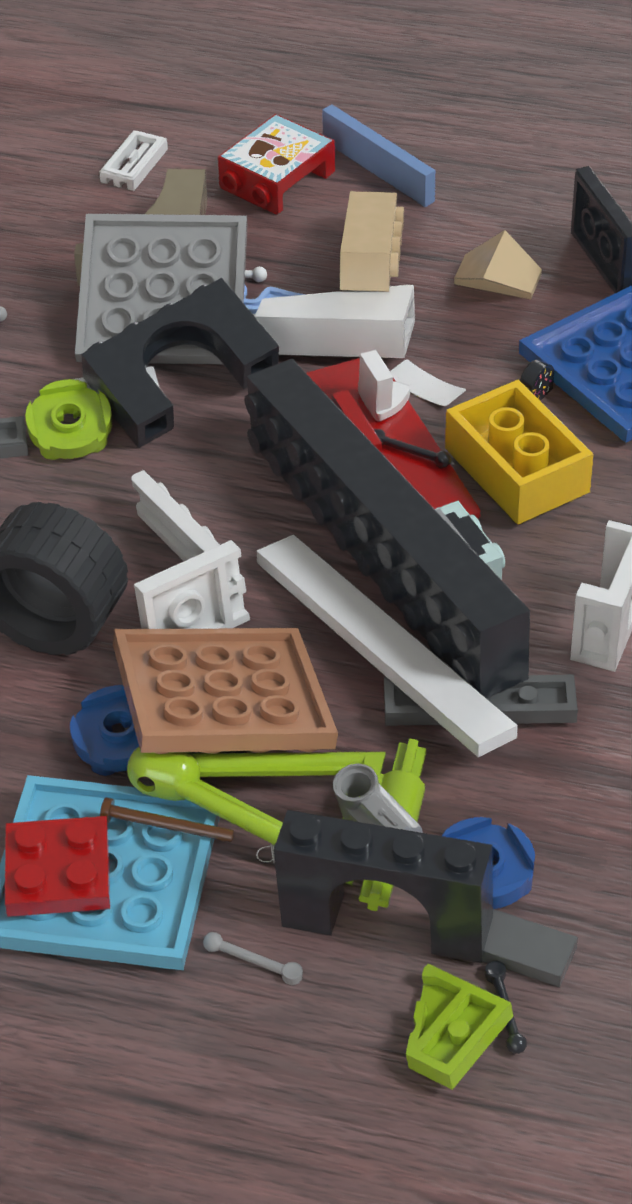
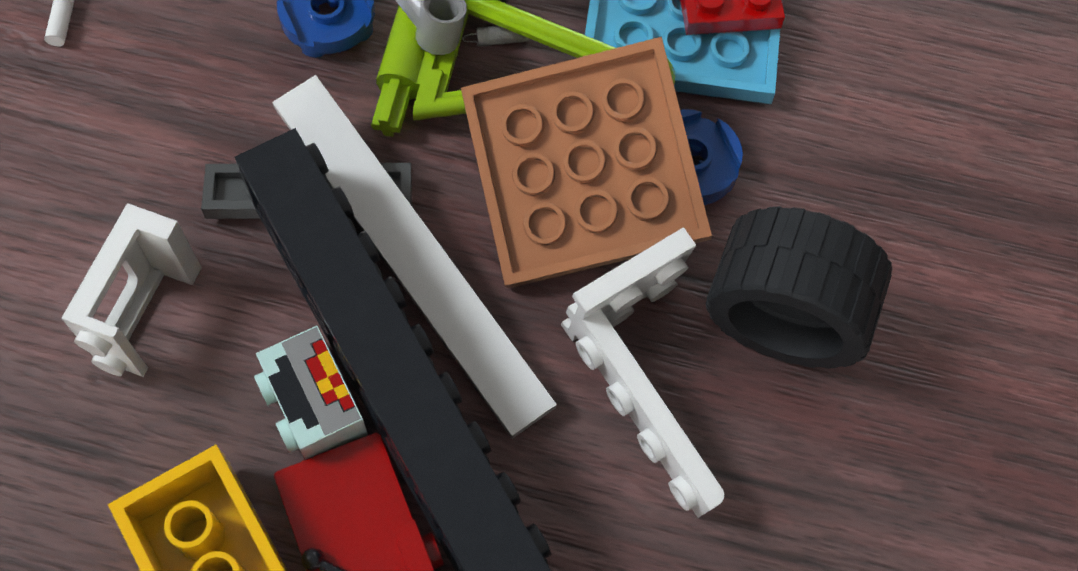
camera: 175 degrees right, 20 degrees up
(111, 811) = (686, 38): reddish brown piece -> none

